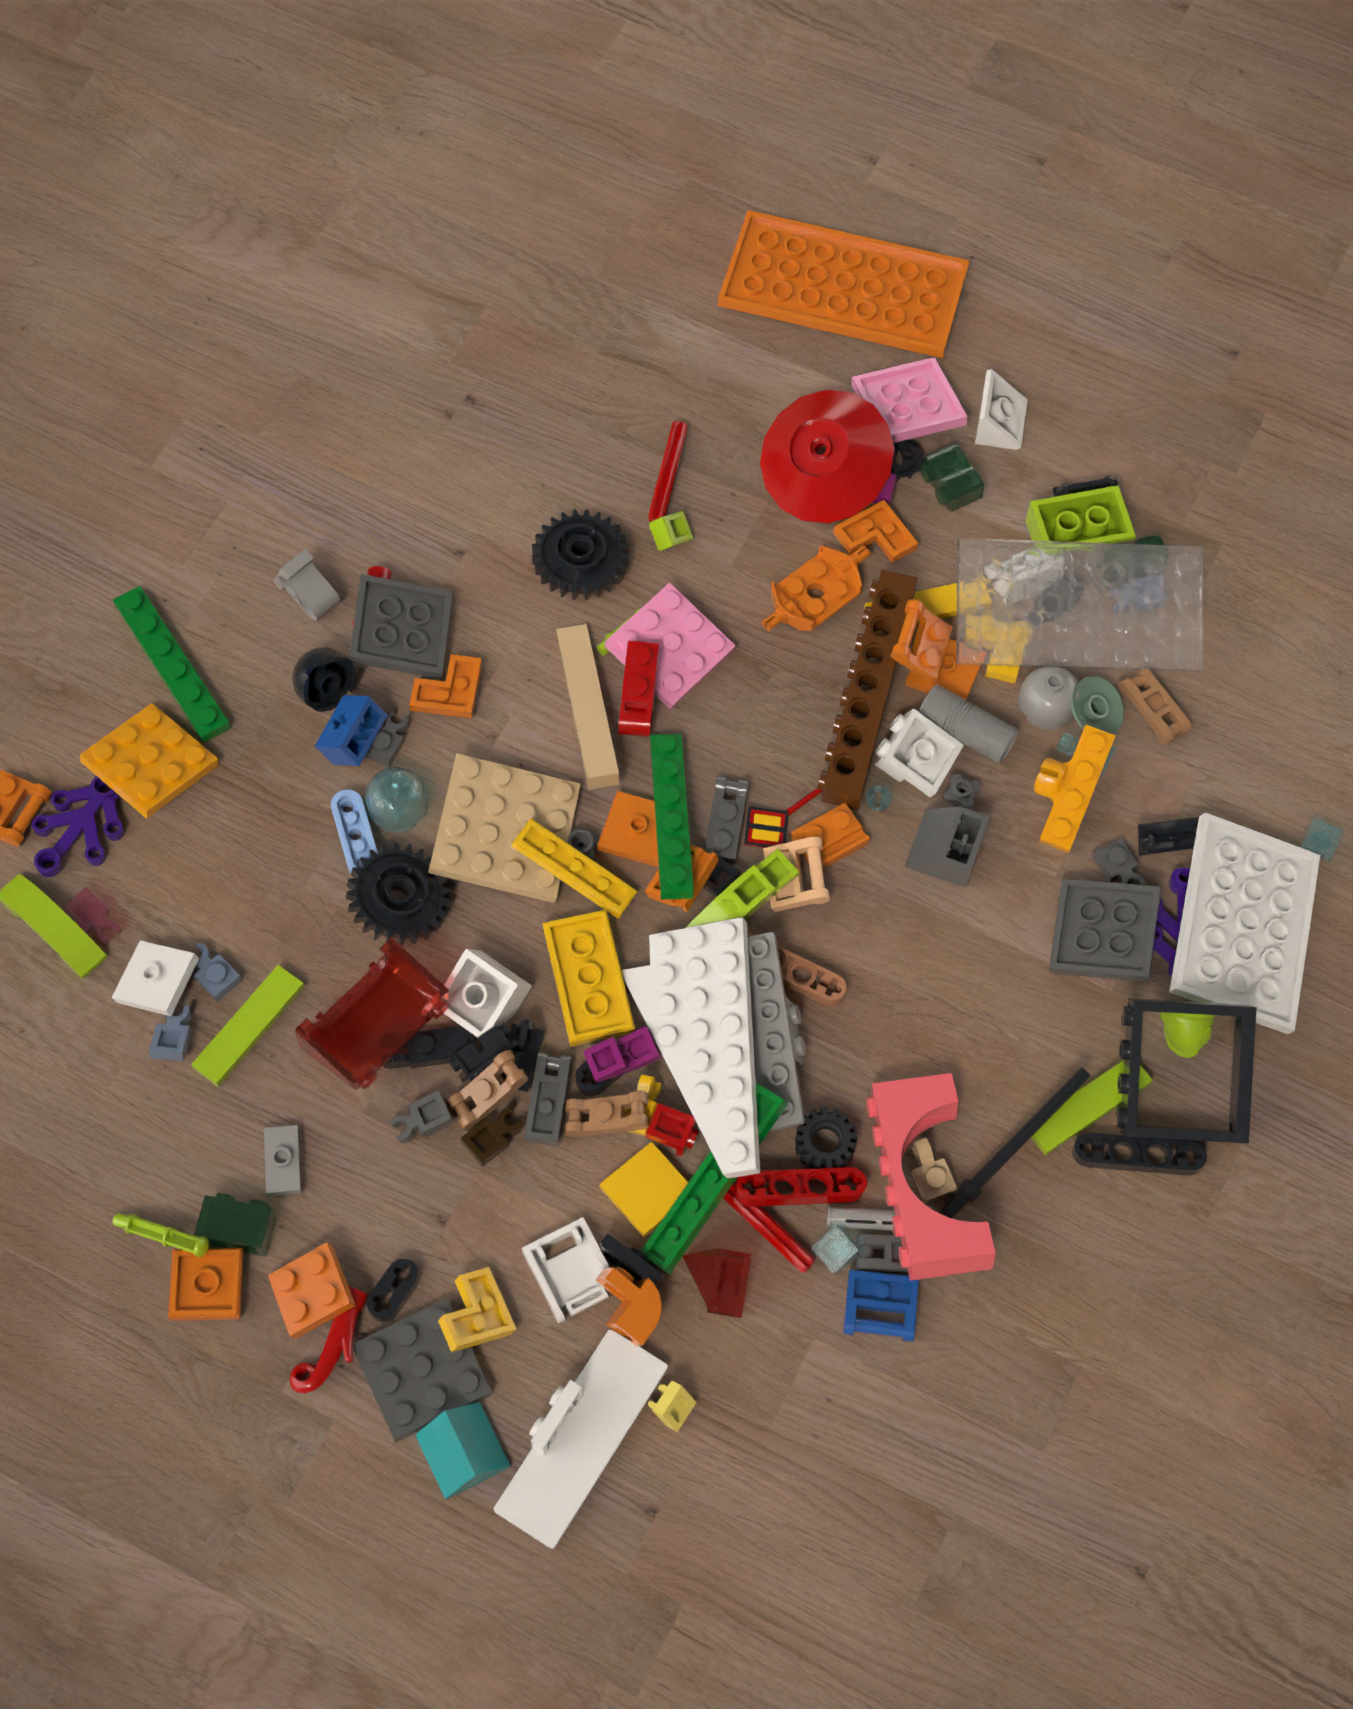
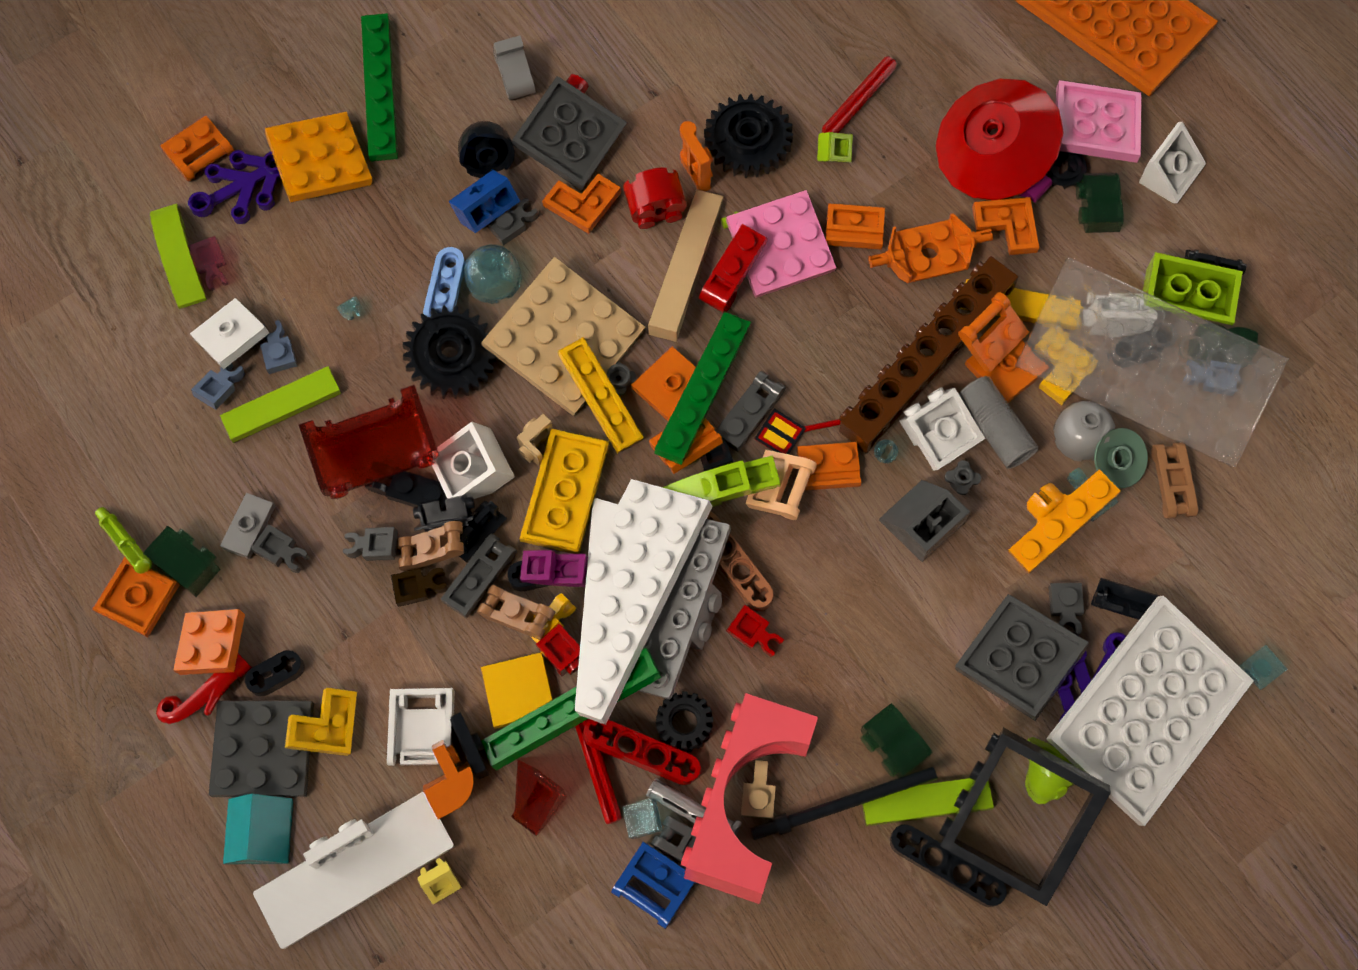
camera: 30 degrees right, 5 degrees up
(268, 897) = (347, 307): none -> clear light blue hinge
(325, 1167) = (276, 547): none -> dark grey plate
(524, 653) = (655, 197): none -> red brick
(528, 935) = (532, 436): none -> tan bracket
(542, 597) = (695, 158): none -> orange plate
(732, 598) = (855, 226): none -> orange plate
(840, 1024) = (750, 628): none -> red plate
(1032, 1063) = (895, 741): none -> clear green brick

